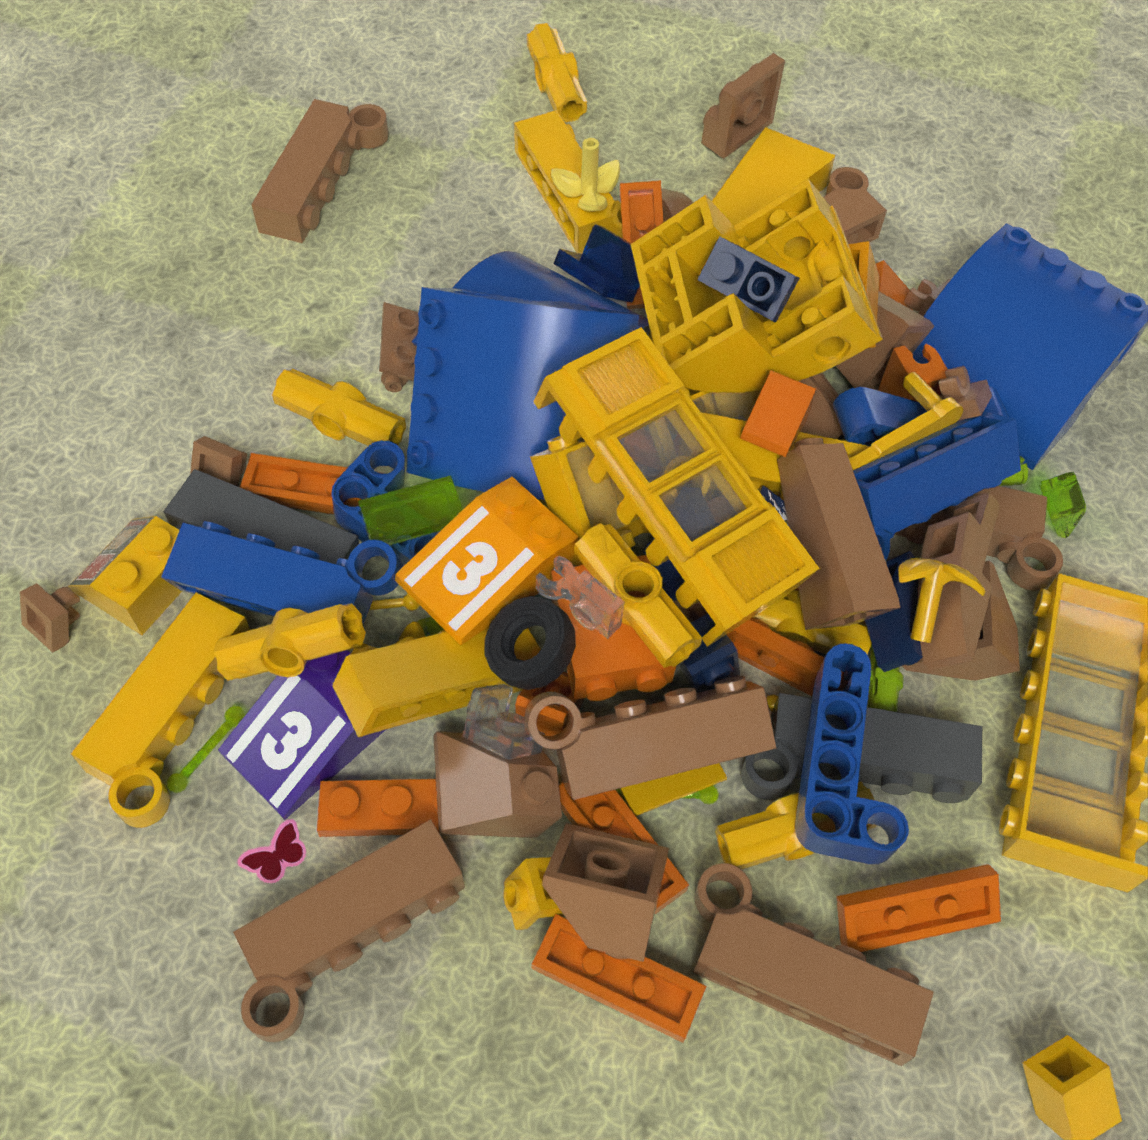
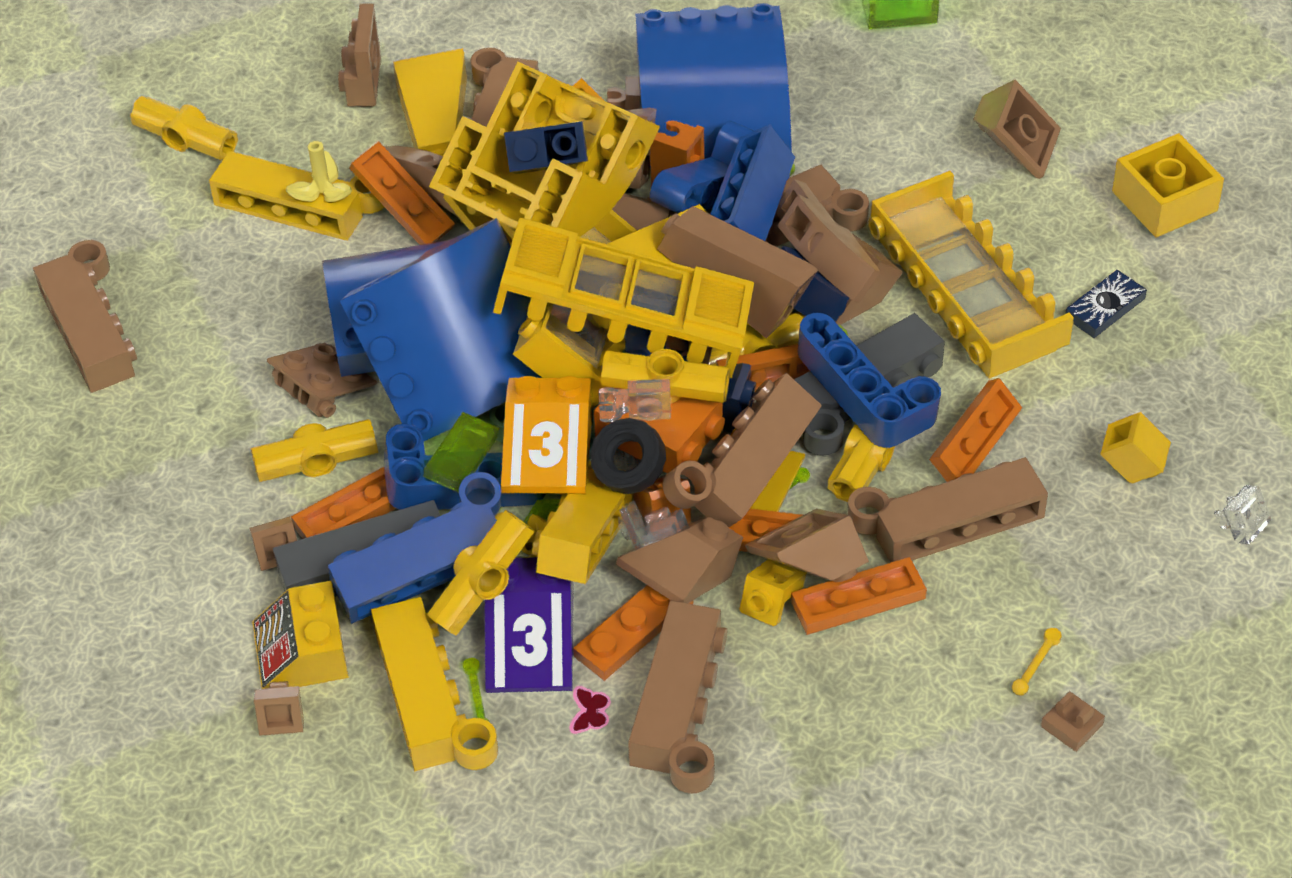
camera: 40 degrees left, 10 degrees down
(604, 265) = (389, 225): clear blue panel -> none
(779, 414) = (636, 216): orange slope -> none
(935, 576) = (817, 240): yellow plant -> none
(939, 415) = (722, 157): yellow piece -> none
(970, 396) = (720, 139): medium nougat tile -> none
(1064, 502) = (833, 159): clear neon green slope -> none

